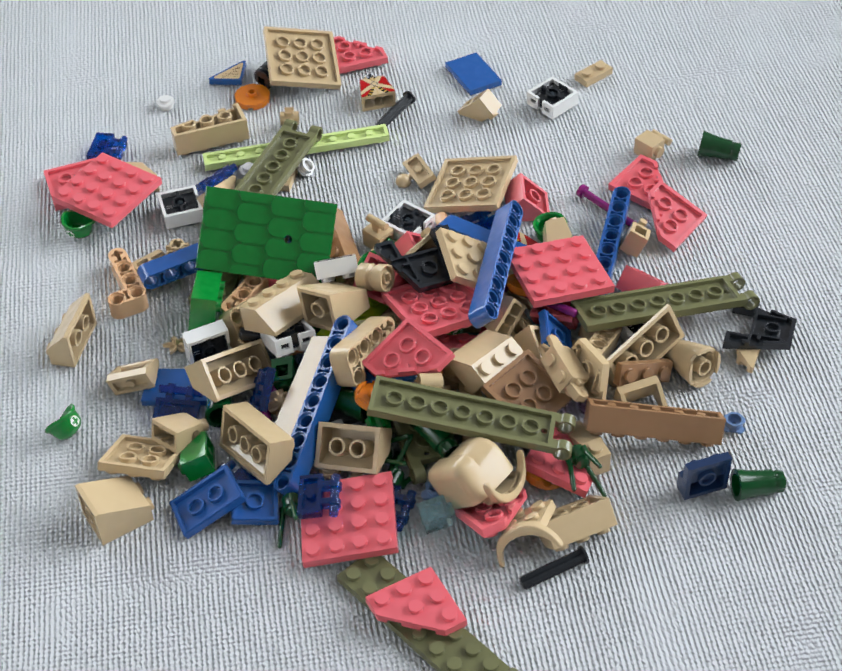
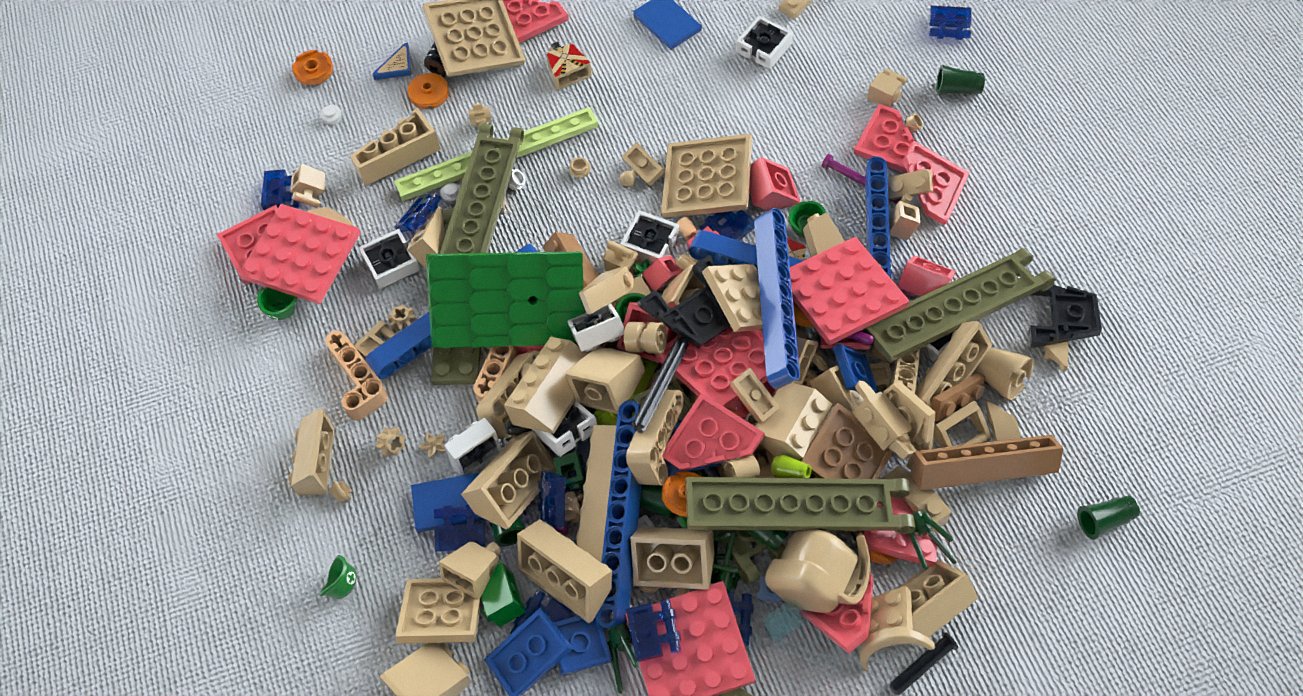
camera: 10 degrees left, 15 degrees up
(87, 363) = (340, 491): none -> tan plate
(129, 145) = (307, 185): none -> tan brick
(133, 334) = (396, 444): none -> tan gear
(133, 376) = (401, 507): tan tile -> none
(160, 67) = (312, 67): none -> orange plate
(206, 298) = (456, 392): green wedge -> none
(353, 243) = (606, 289): none -> tan slope
(363, 166) = (579, 167): none -> tan plate
(375, 309) = (660, 385): none -> black axle
(391, 114) = (595, 84): black axle -> none
(454, 328) = (754, 395): none -> tan plate
(473, 388) = (788, 467): none -> lime cone
(481, 106) = (688, 66): tan slope -> none
(650, 211) = (911, 183): none -> tan plate
(668, 173) = (913, 122): none -> tan hinge
(680, 398) = (1003, 424): none -> tan slope
(704, 475) = (1054, 521): dark blue plate -> none
(726, 101) = (950, 17): none -> clear blue plate
(734, 423) = (1067, 435): medium blue plate -> none

